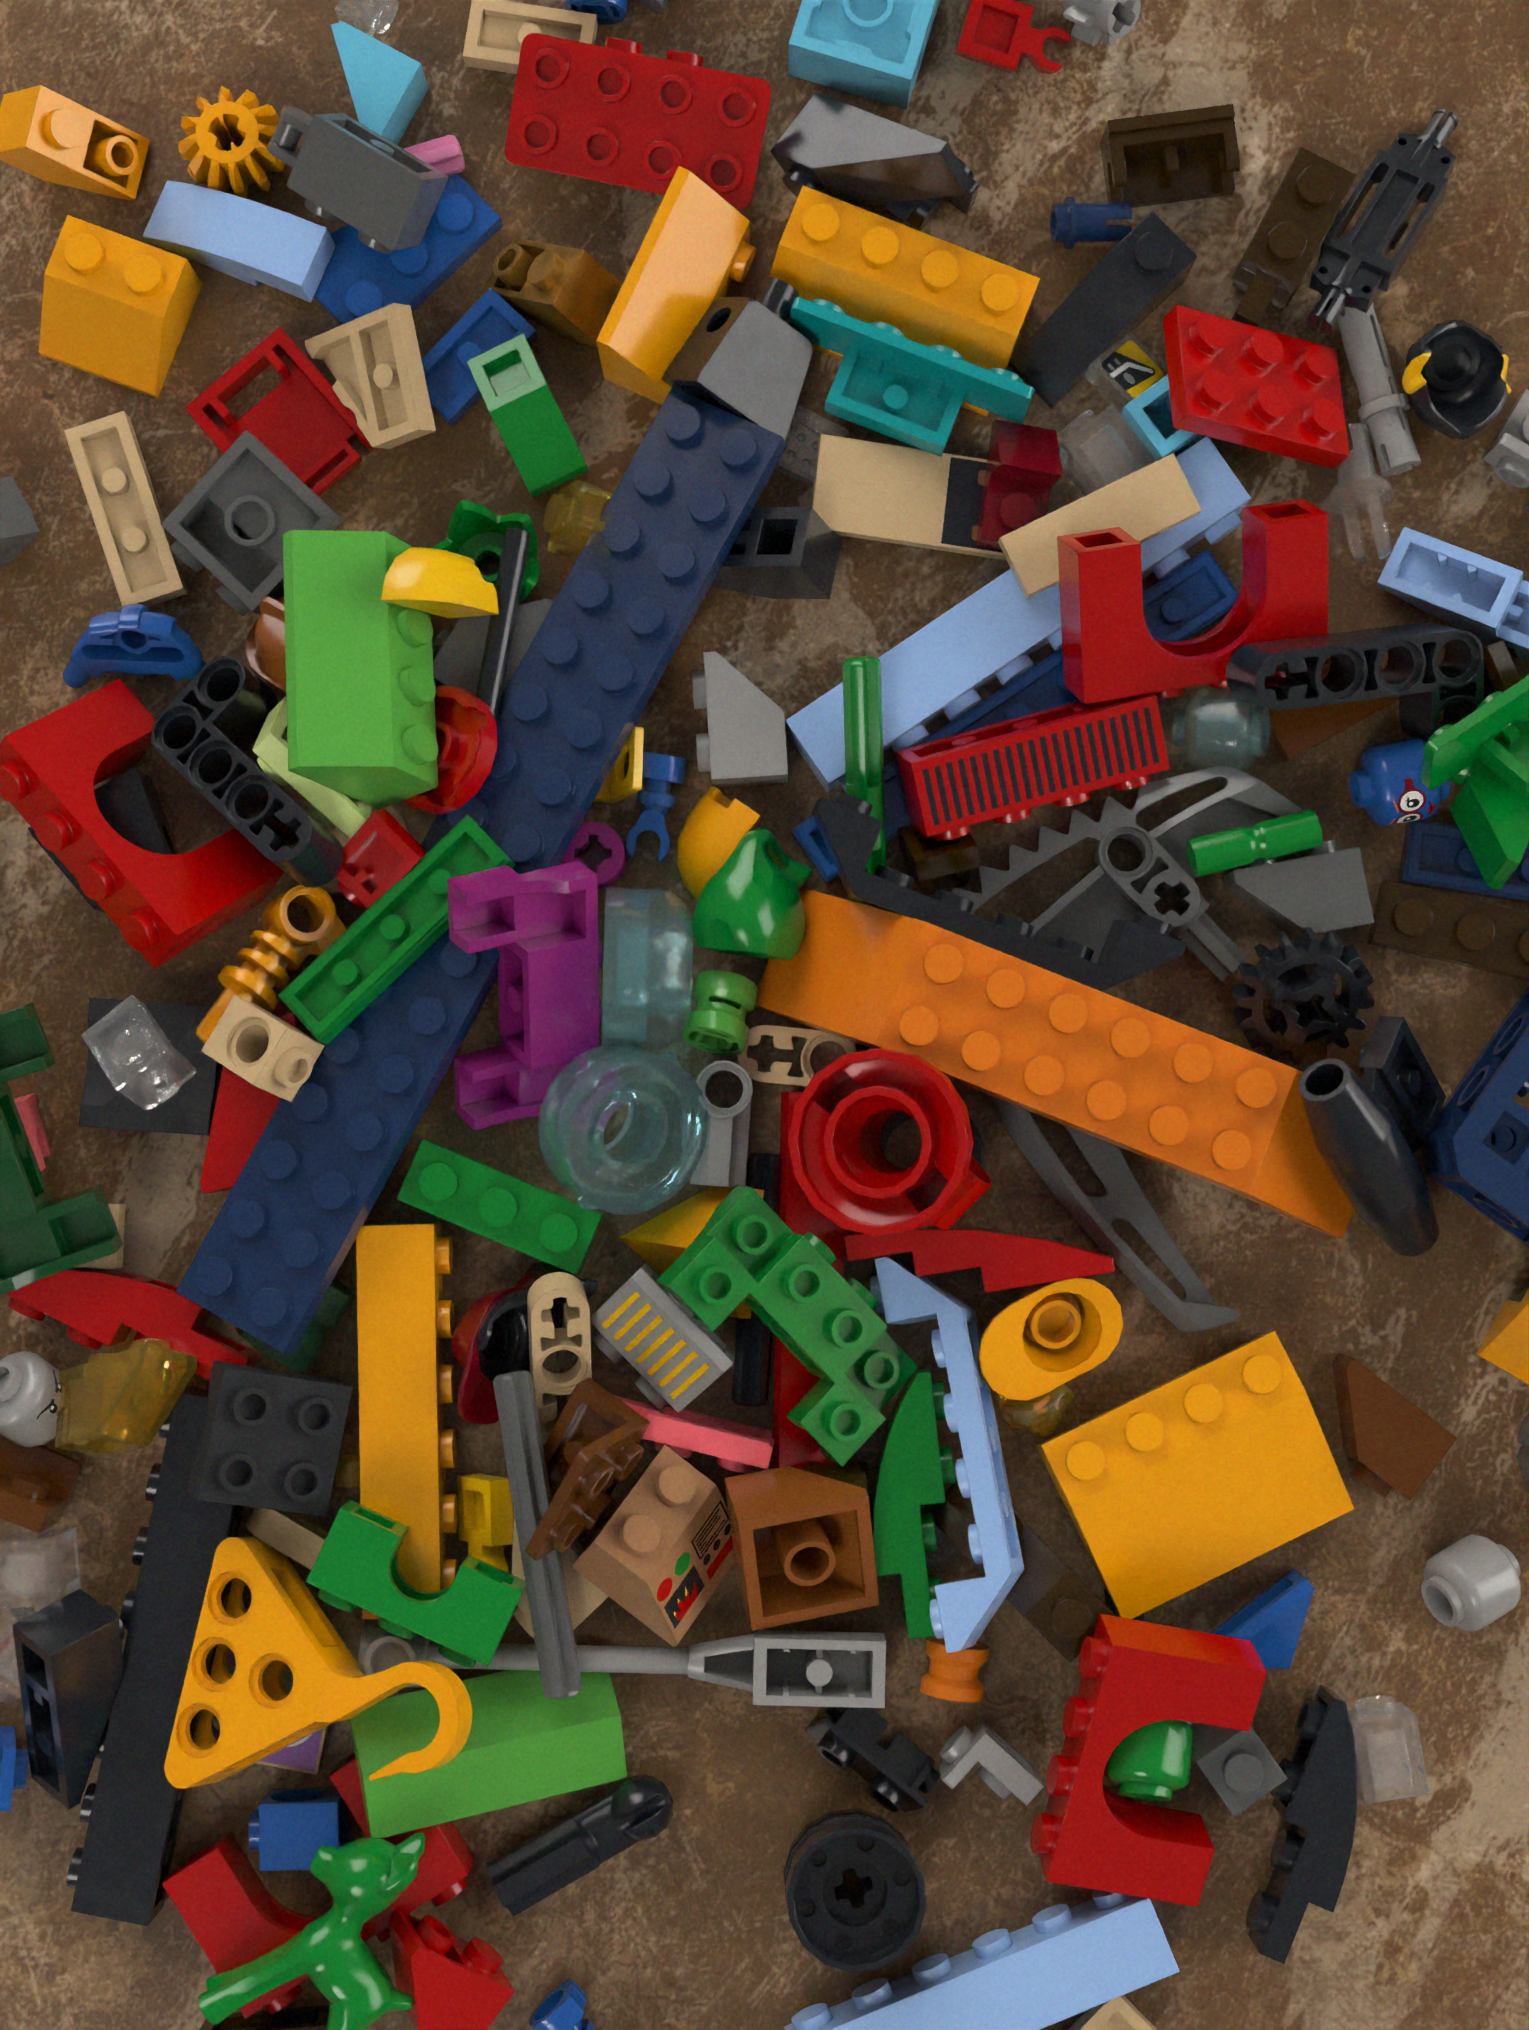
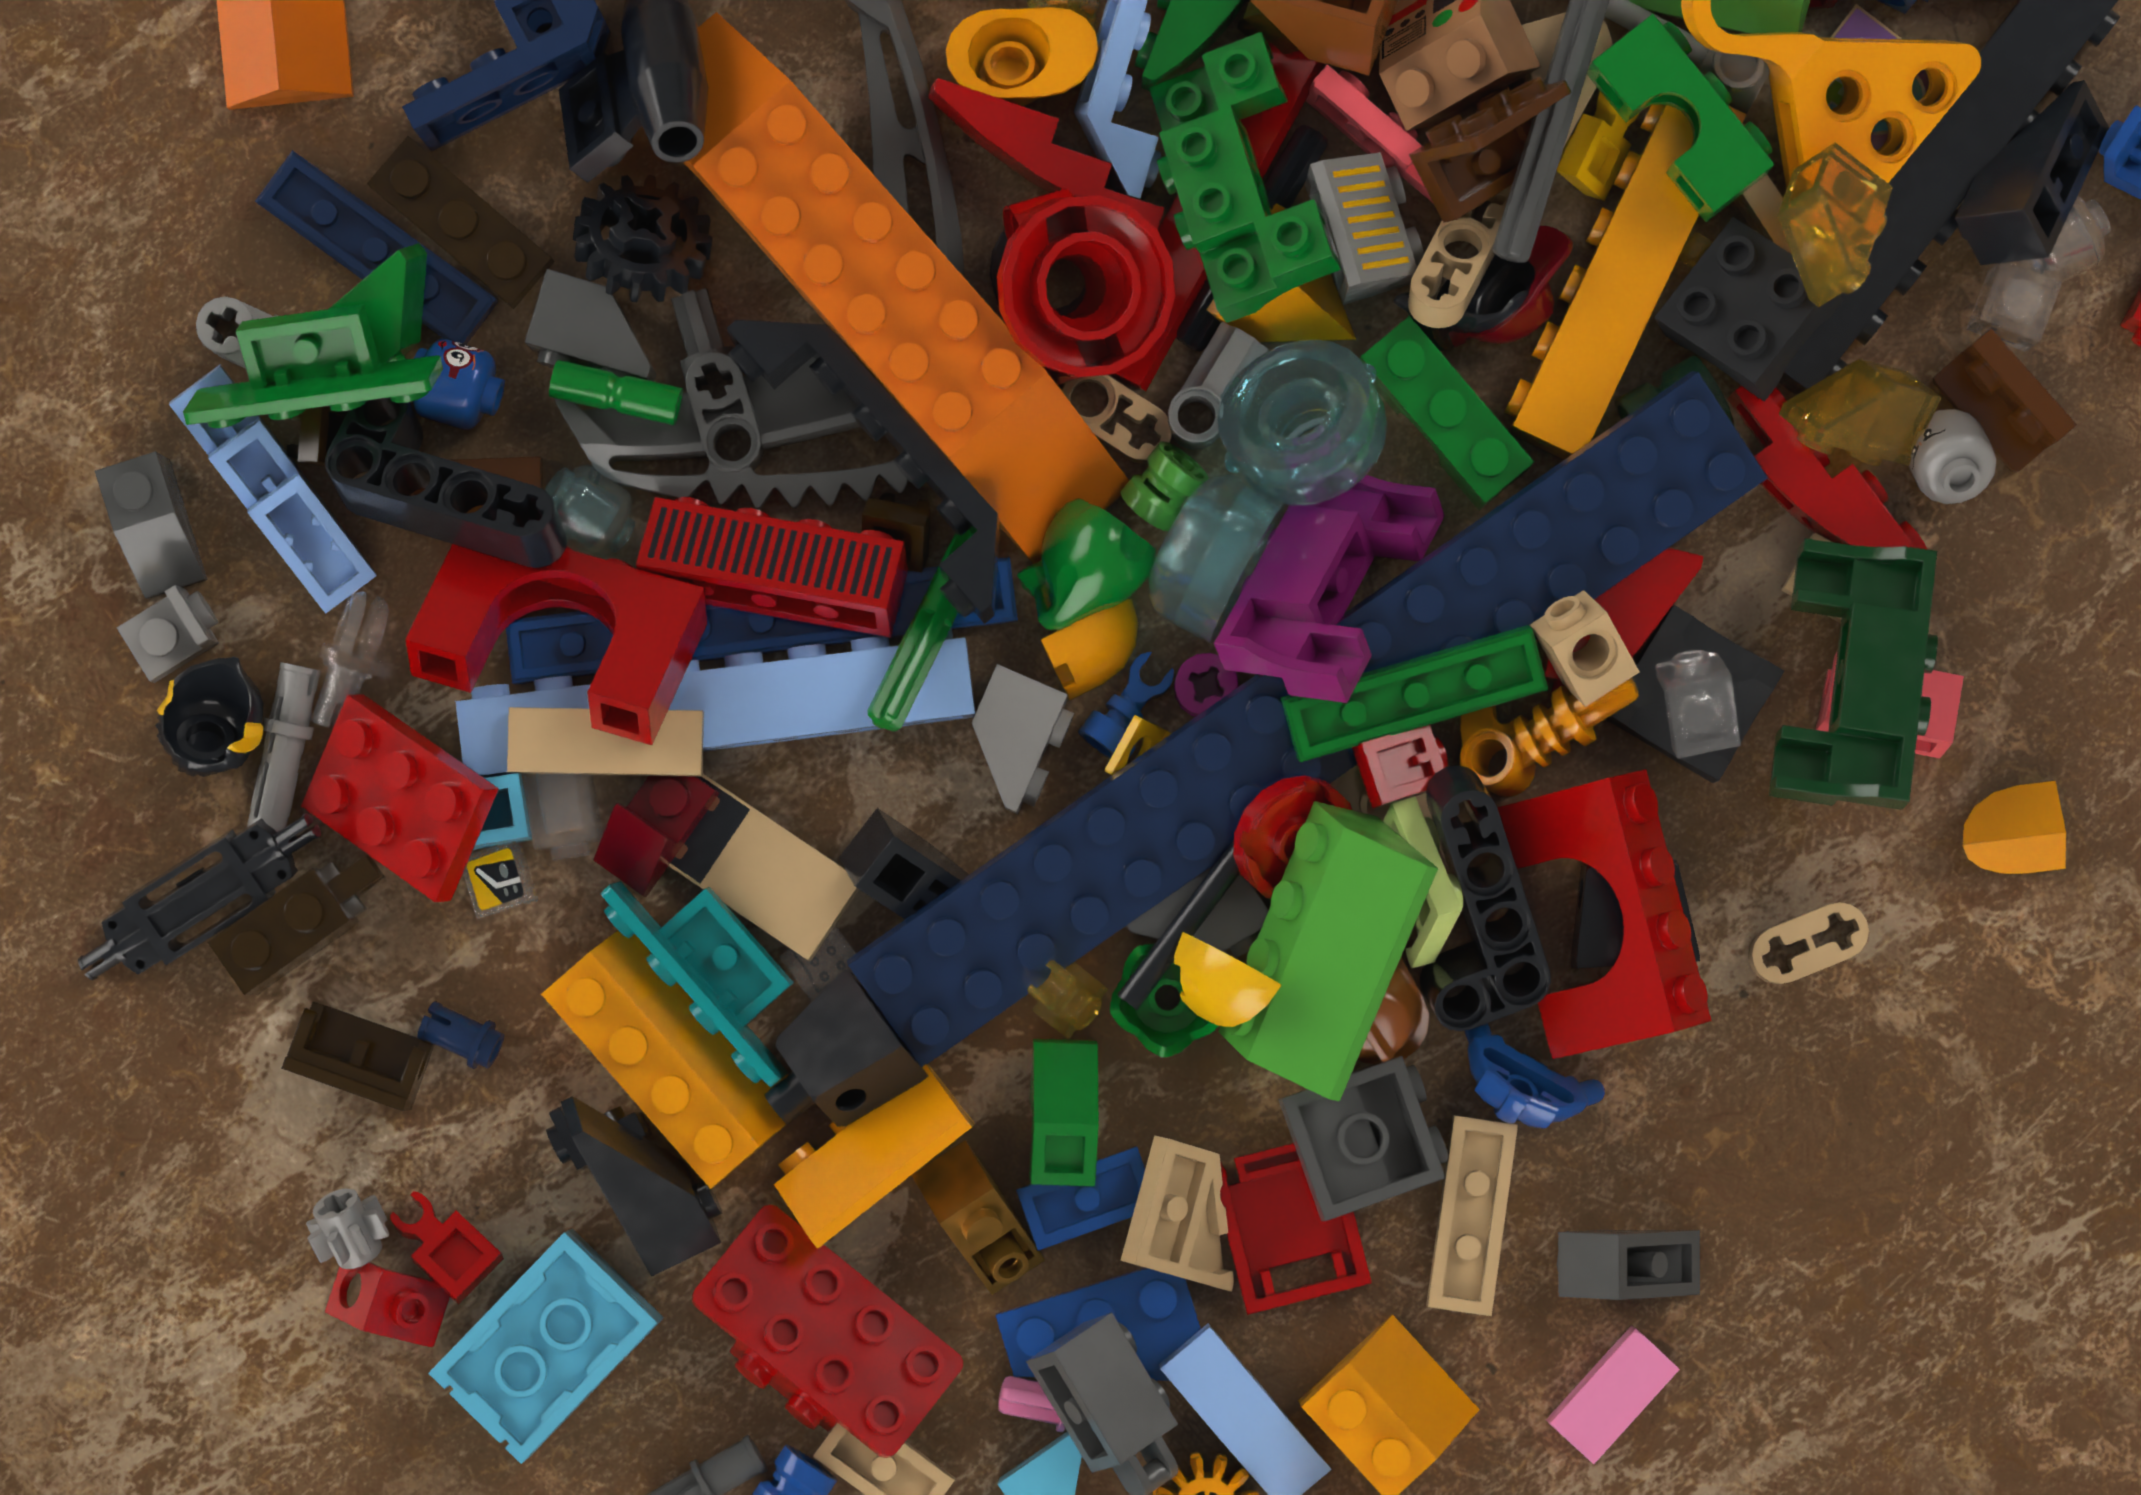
camera: 145 degrees left, 0 degrees up
(222, 1554) = (1832, 220): none -> clear yellow slope
(1104, 308) = (494, 946): black slope -> none

